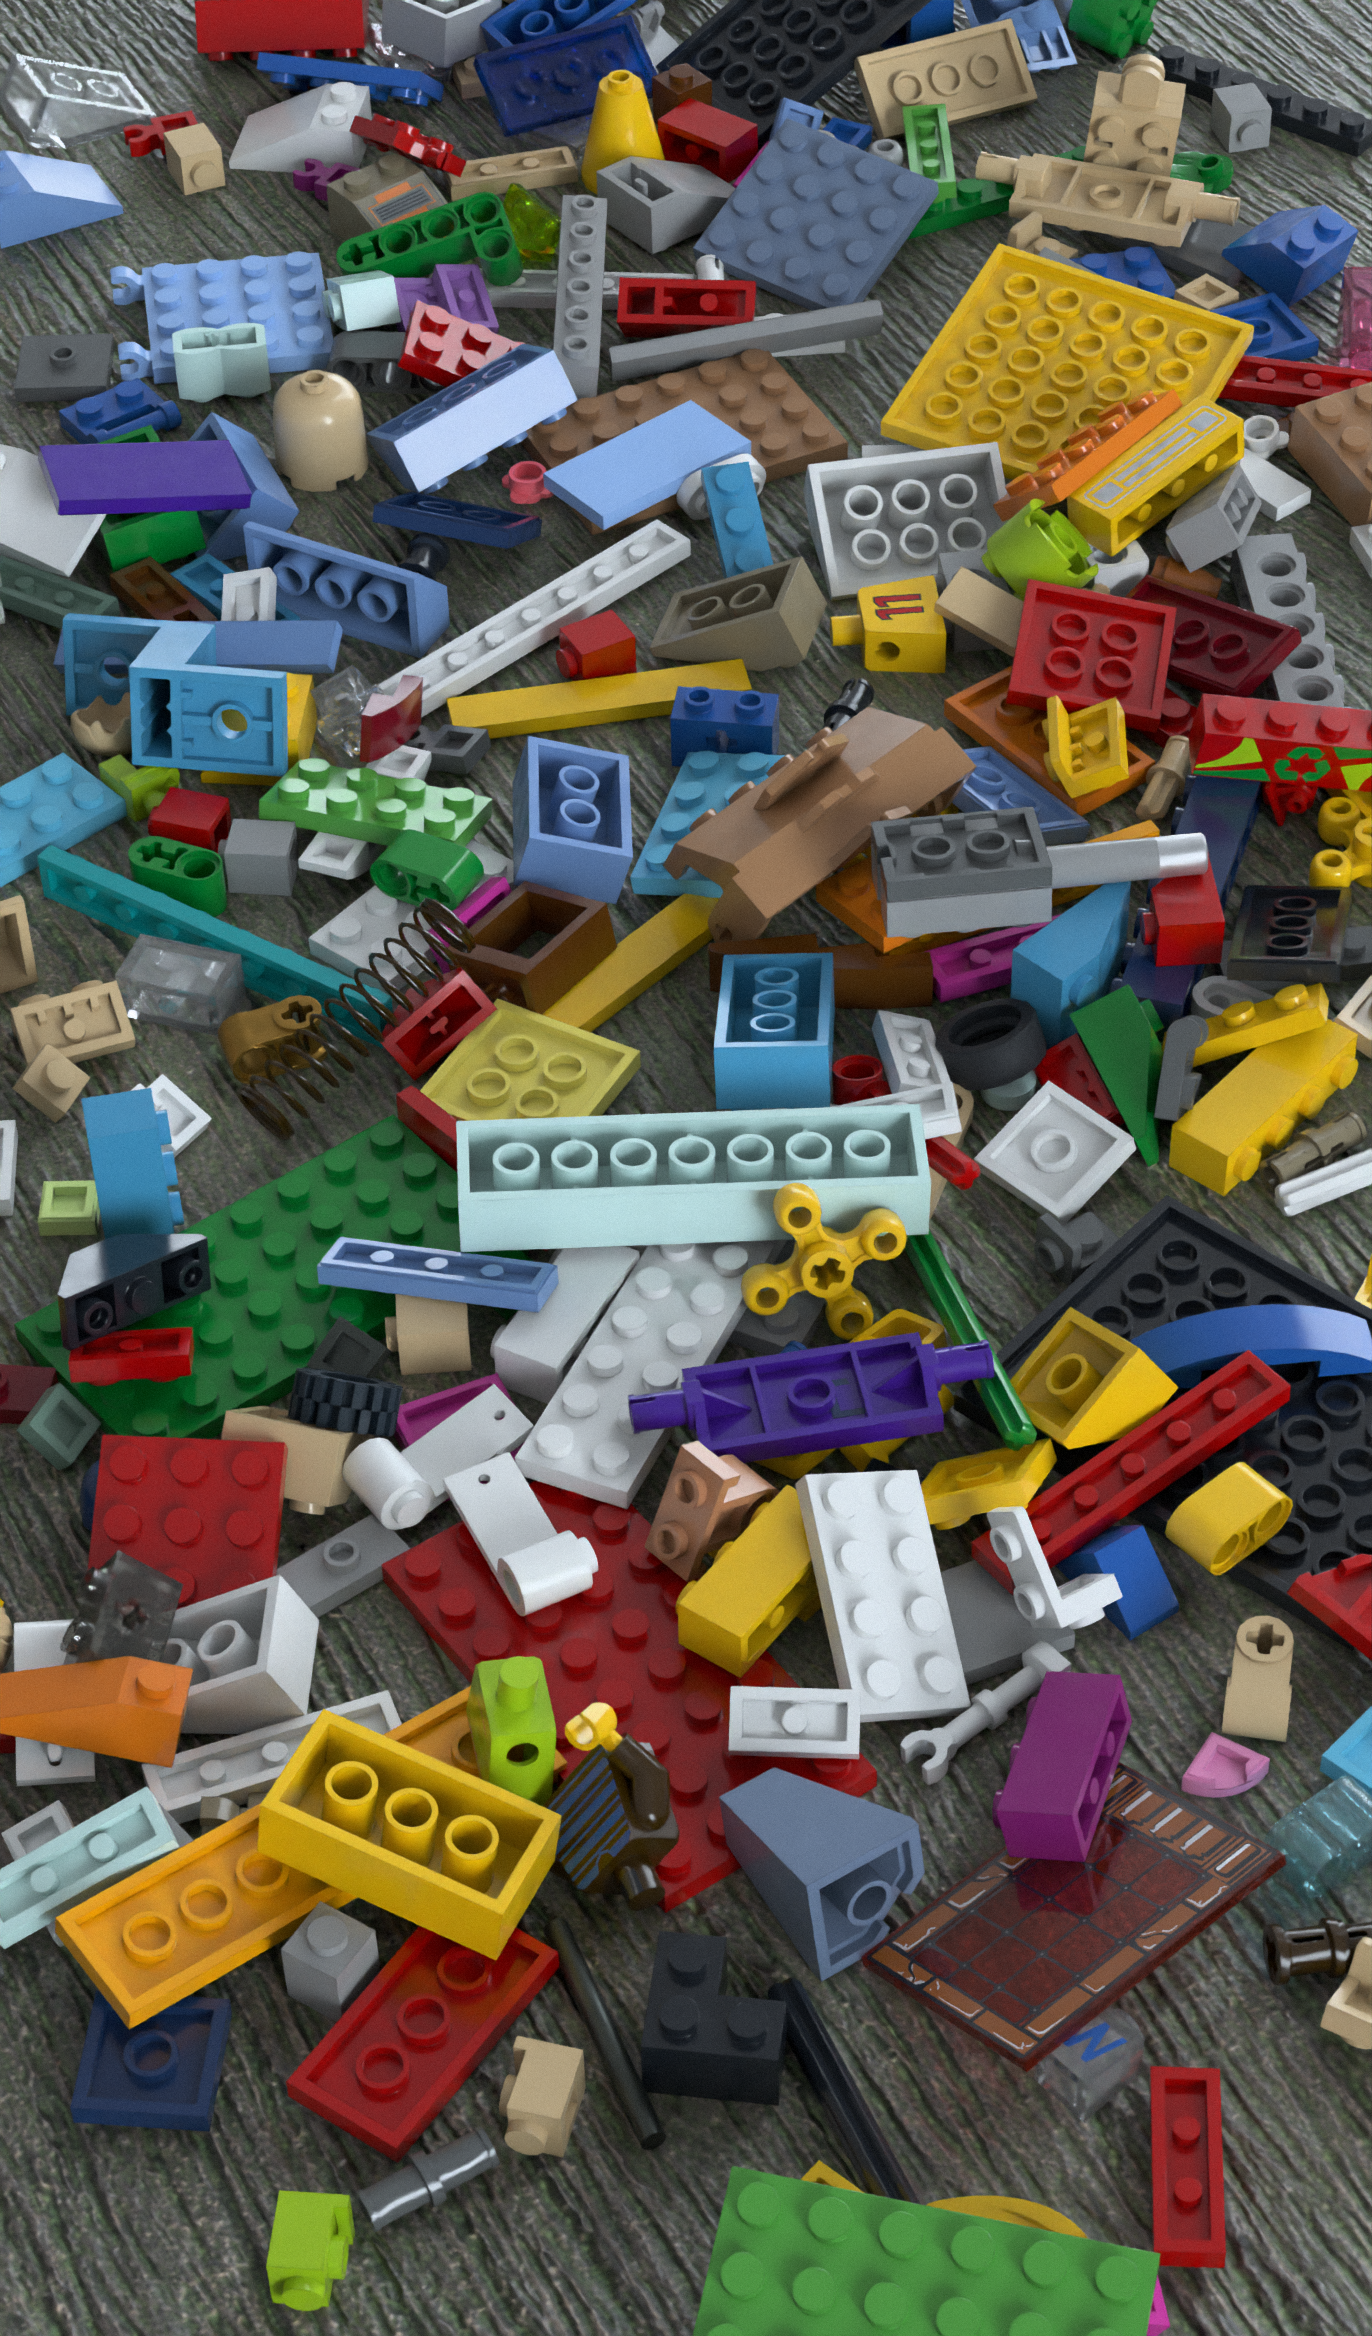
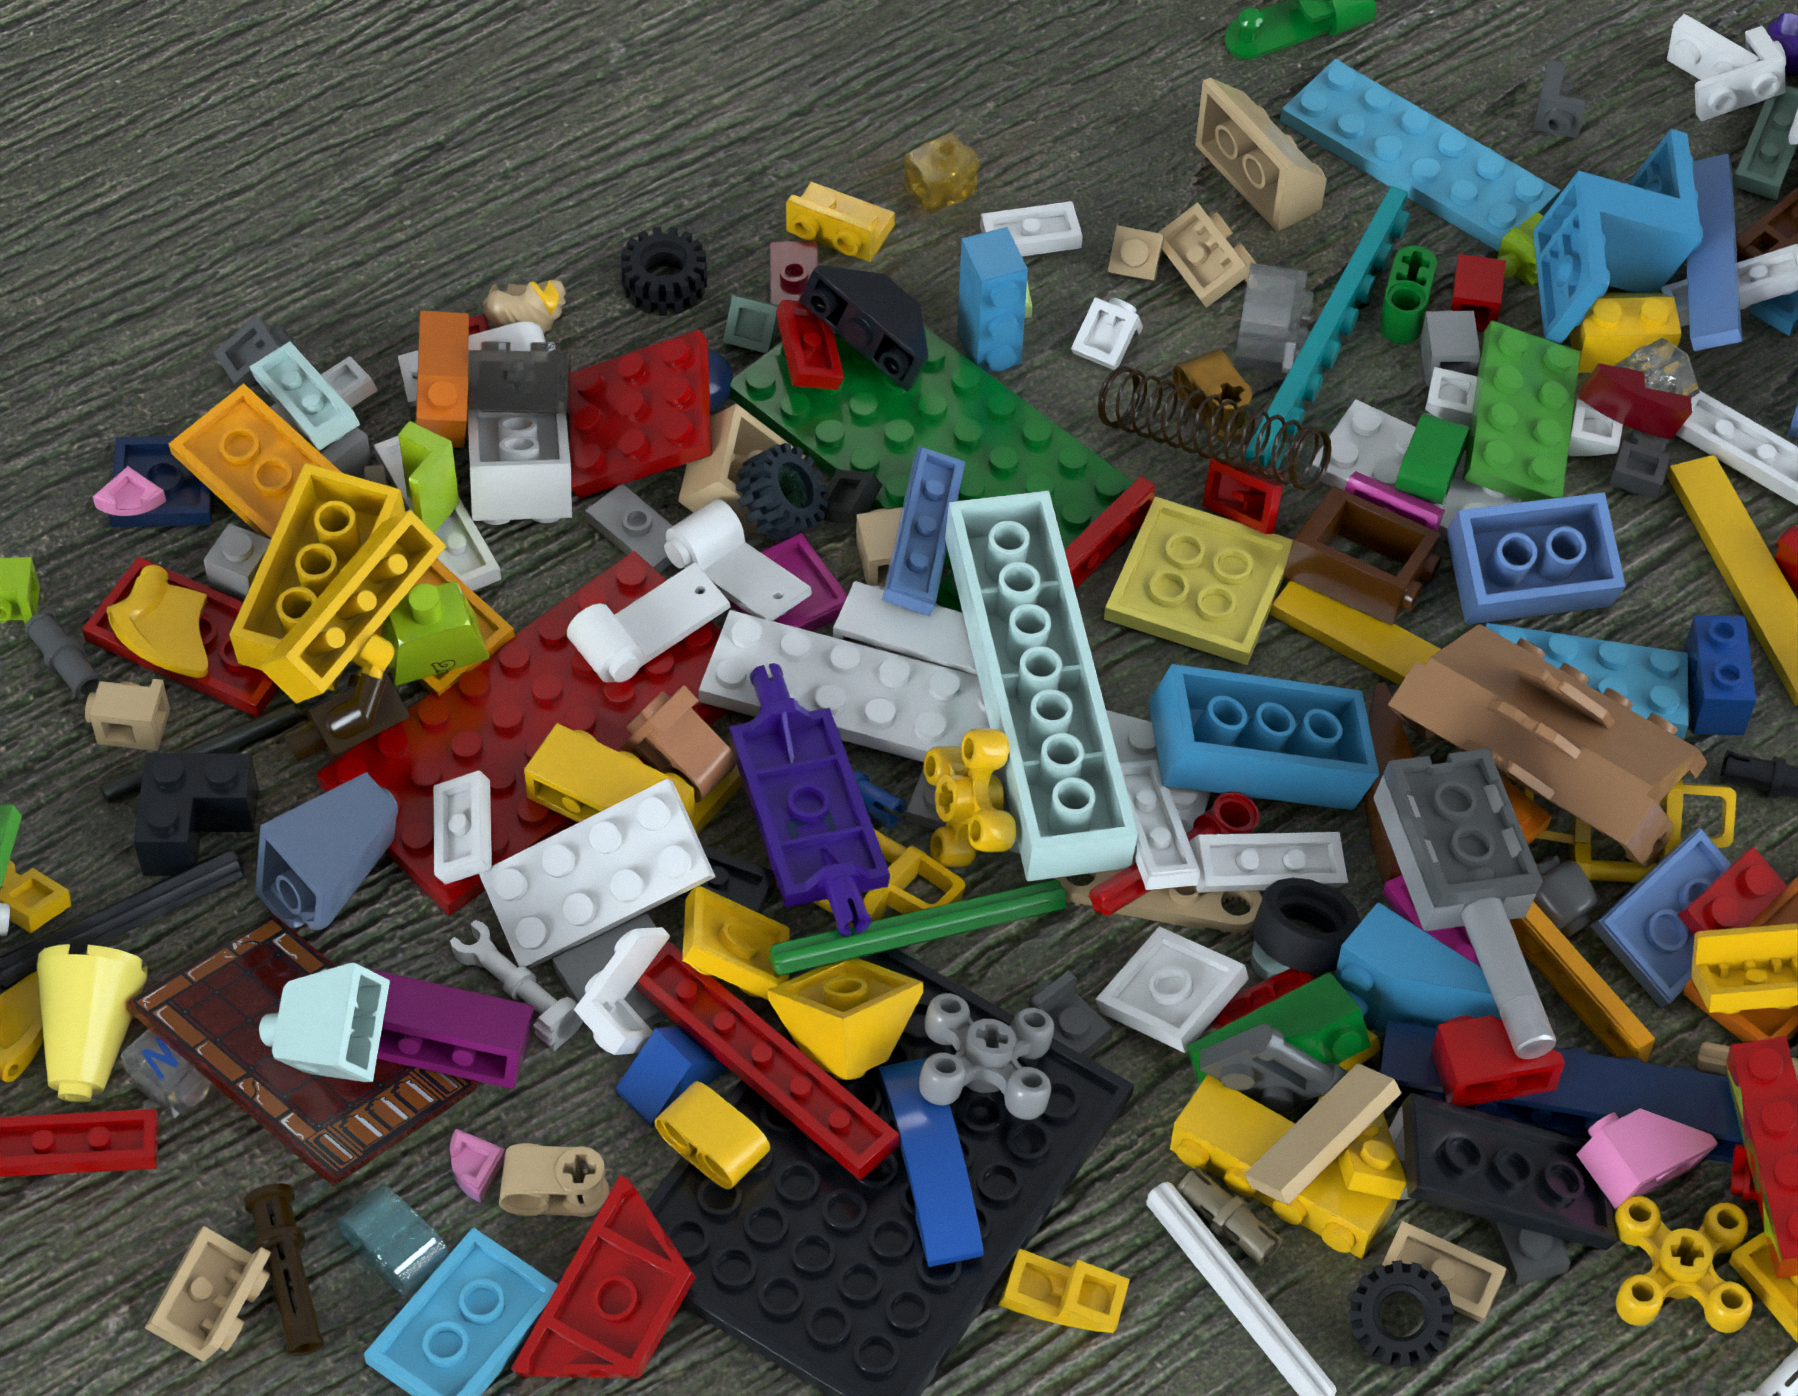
camera: 80 degrees right, 10 degrees up
(184, 2083) = (129, 495): none -> bright pink tile
(269, 1709) = (429, 474): none -> lime panel
(416, 2044) = (162, 623): none -> yellow arm
(518, 1749) = (352, 607): none -> yellow brick
(996, 756) = (1734, 895): none -> red plate
(1021, 2133) = (85, 1015): none -> light yellow cone
(1093, 1835) = (329, 1023): none -> light aqua torso
(1154, 1275) = (986, 1056): none -> light grey gear
(1263, 1034) = (1322, 1133): none -> tan tile
(1276, 851) = (1641, 1153): none -> bright pink slope

